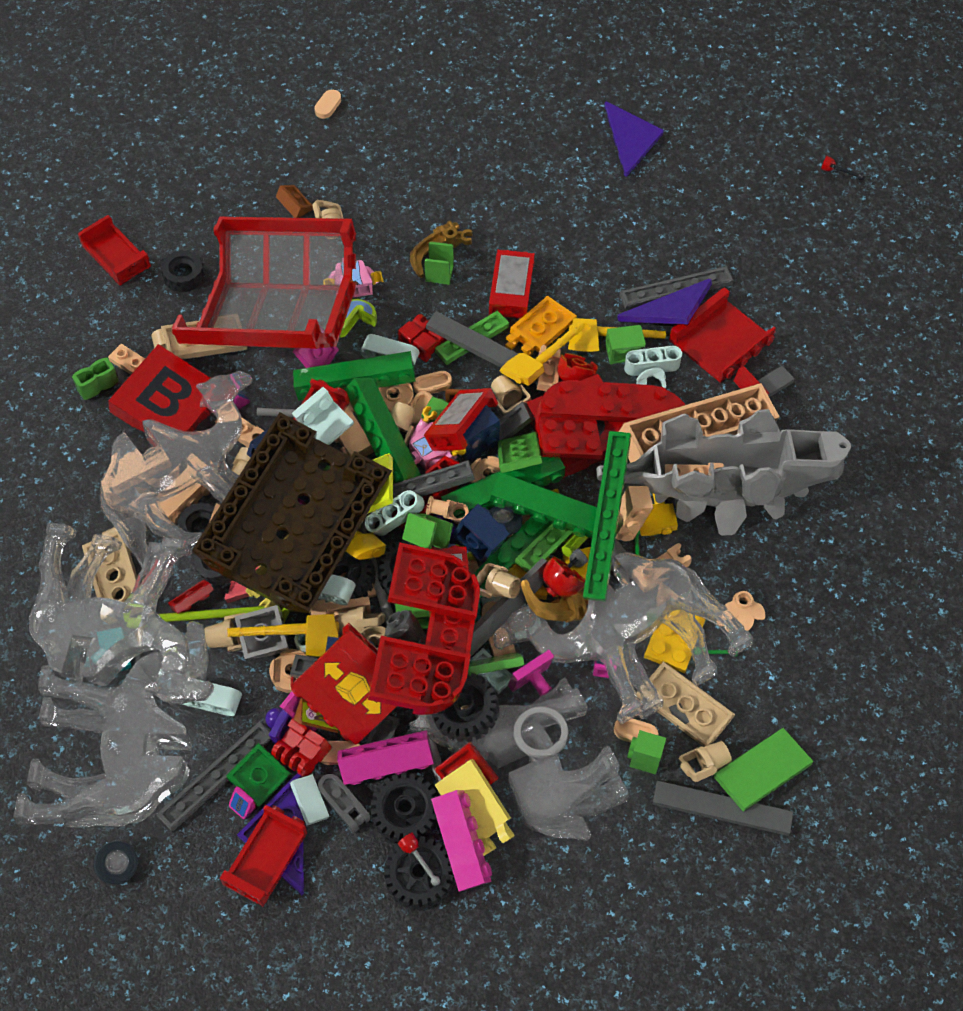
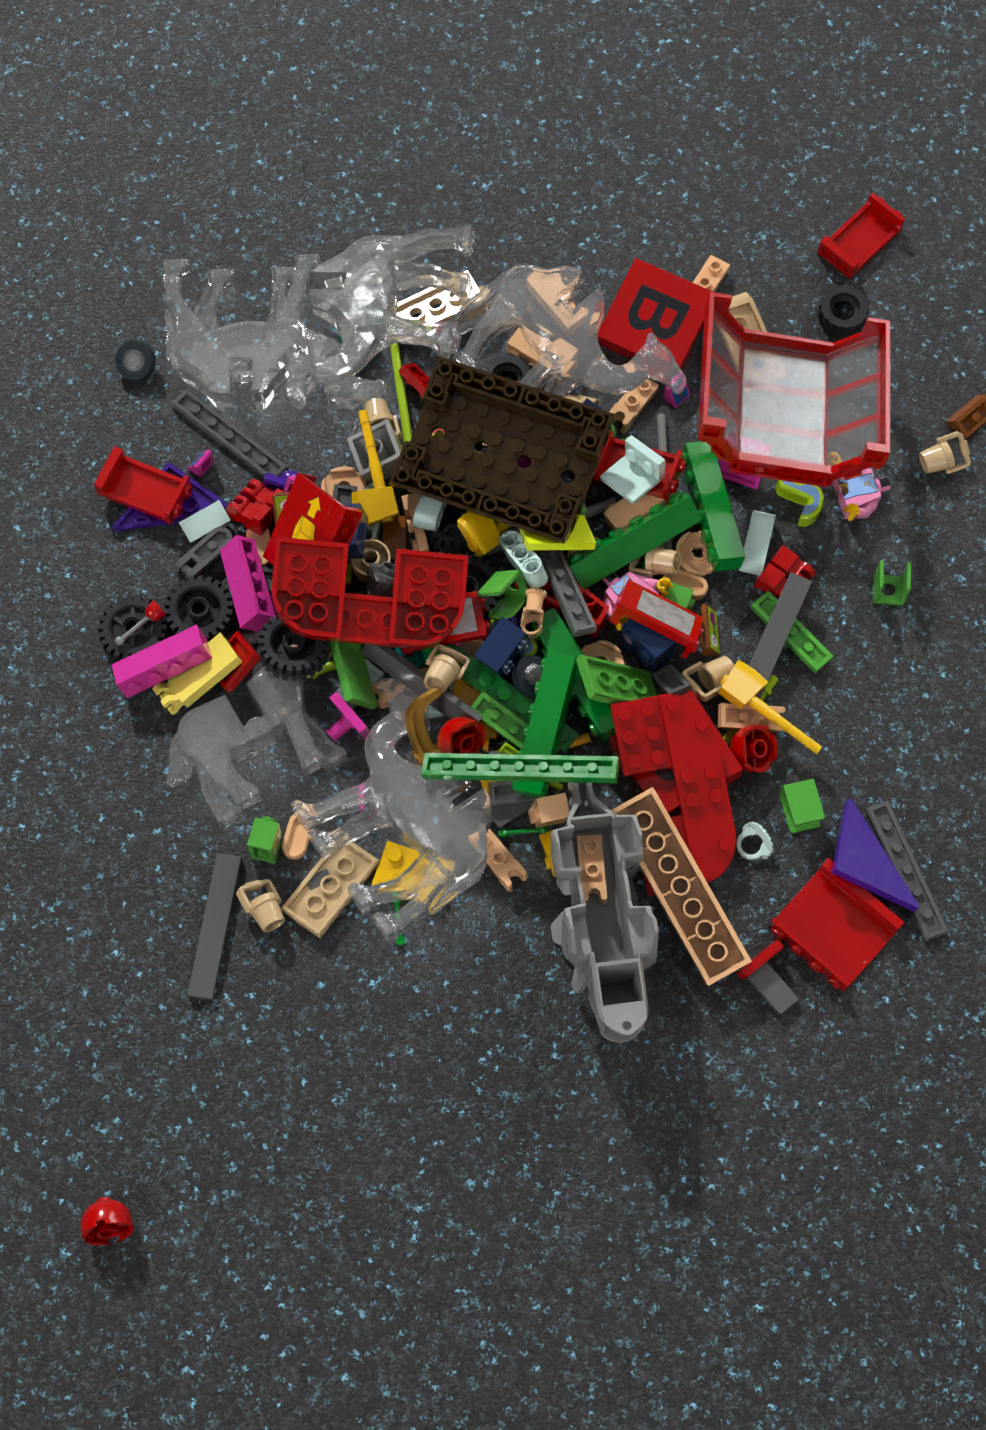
camera: 85 degrees right, 10 degrees up
(97, 377) = (678, 247): bright green brick -> none
(222, 701) = (310, 418): light aqua beam -> none
(258, 775) = (229, 472): green tile -> none
(360, 619) = (397, 537): tan piece -> none
(433, 382) = (723, 595): light nougat tile -> none
(442, 234) = (942, 586): pearl gold piece -> none
(511, 283) = (878, 668): panel -> none
(540, 326) = (819, 709): light orange tile -> none
(554, 749) = (269, 745): light grey piece -> none
(588, 340) = (823, 765): yellow piece -> none
(643, 359) = (786, 830): light aqua beam -> none
(746, 612) = (446, 949): light nougat plate -> none
(763, 769) = (258, 967): bright green tile -> none

